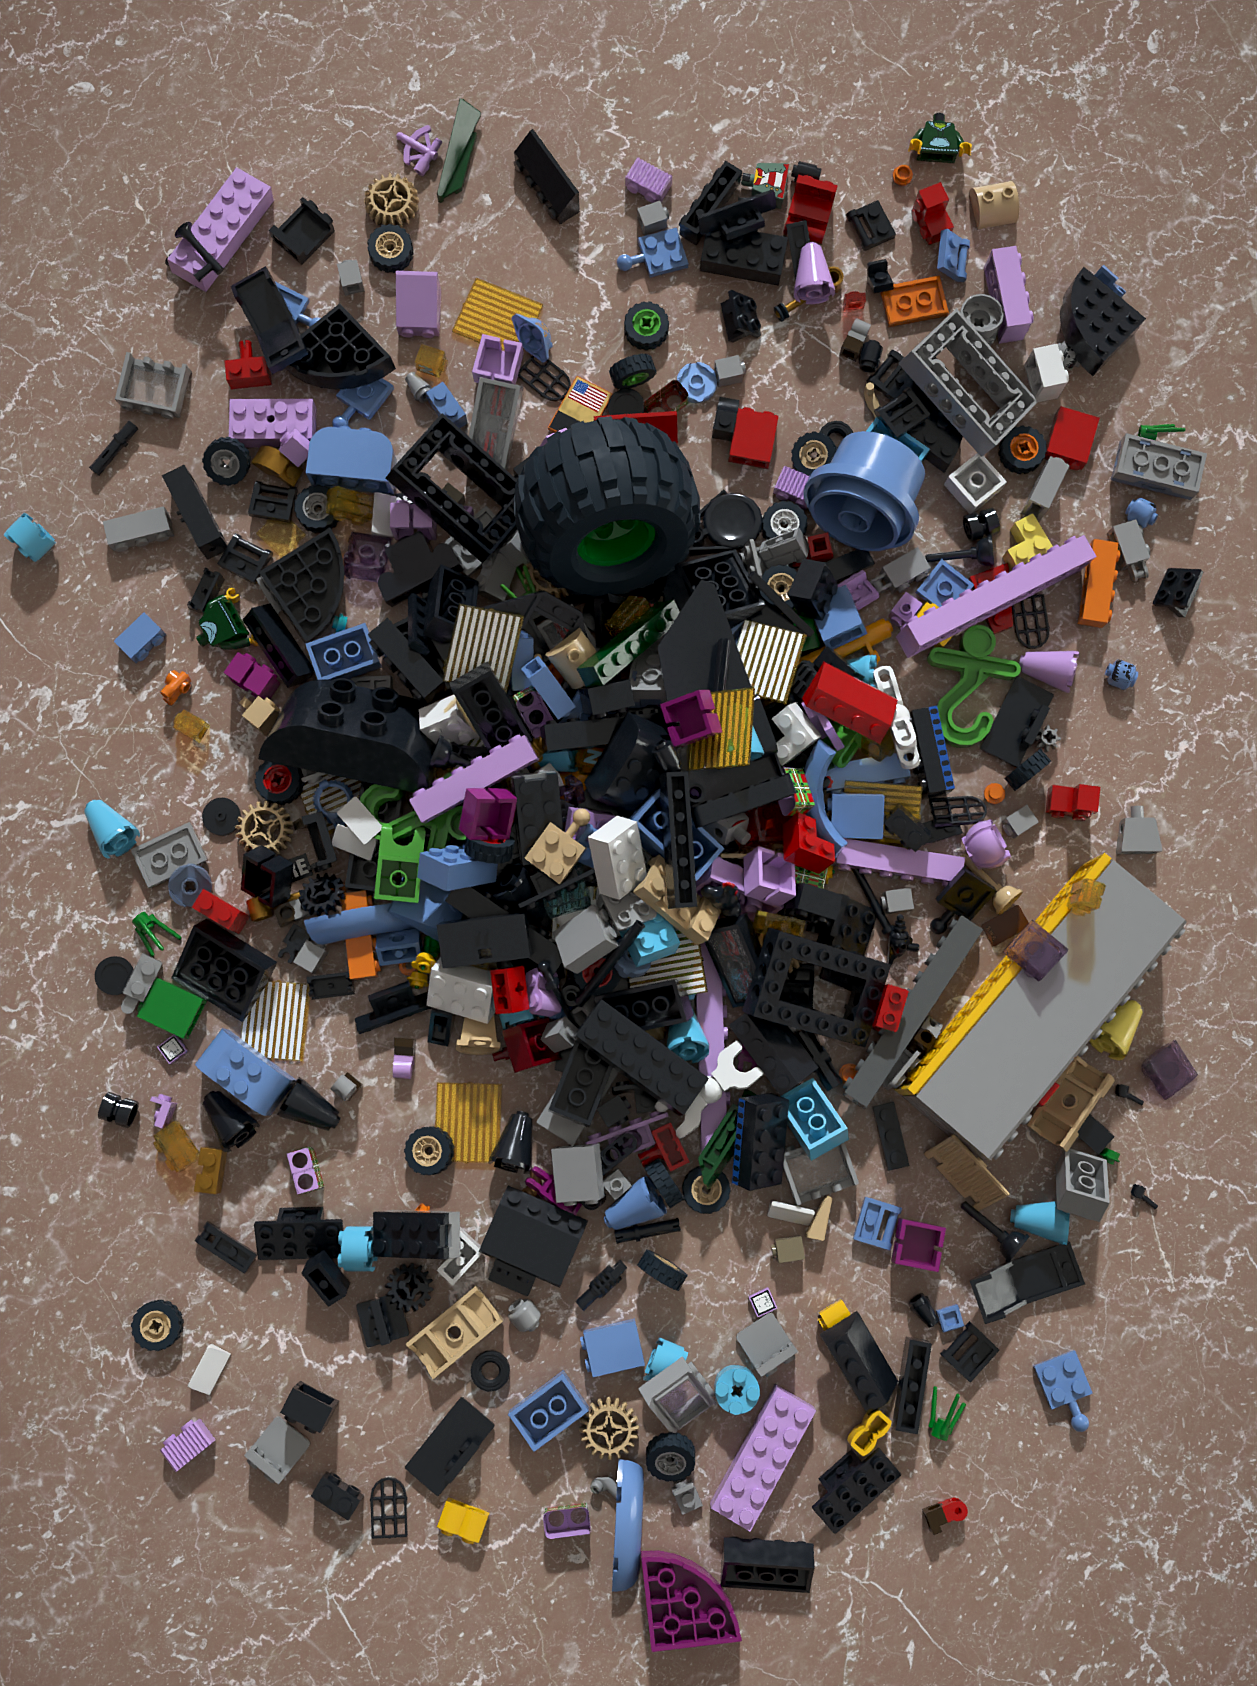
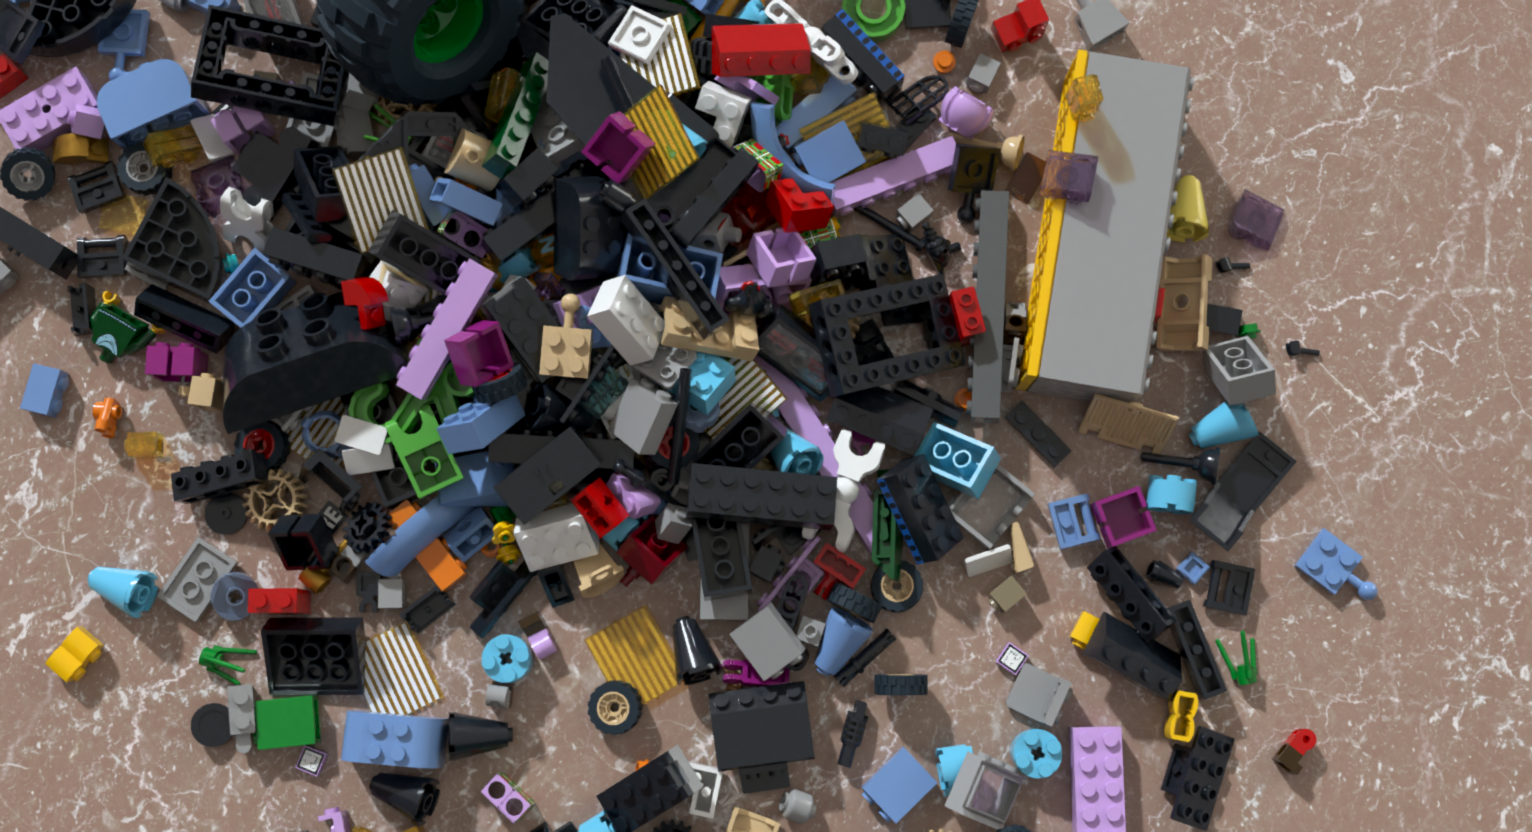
camera: 25 degrees left, 0 degrees up
(42, 857) = (75, 654): none -> yellow brick
(232, 786) = (219, 477): none -> black brick
(357, 1057) = (493, 658): none -> medium azure brick
(372, 597) = (245, 219): none -> white piece
(429, 718) = (369, 297): none -> red brick
(763, 633) = (640, 35): none -> white tile
(887, 1310) = (1131, 594): none -> black brick
(967, 1250) = (1171, 494): none -> medium azure brick

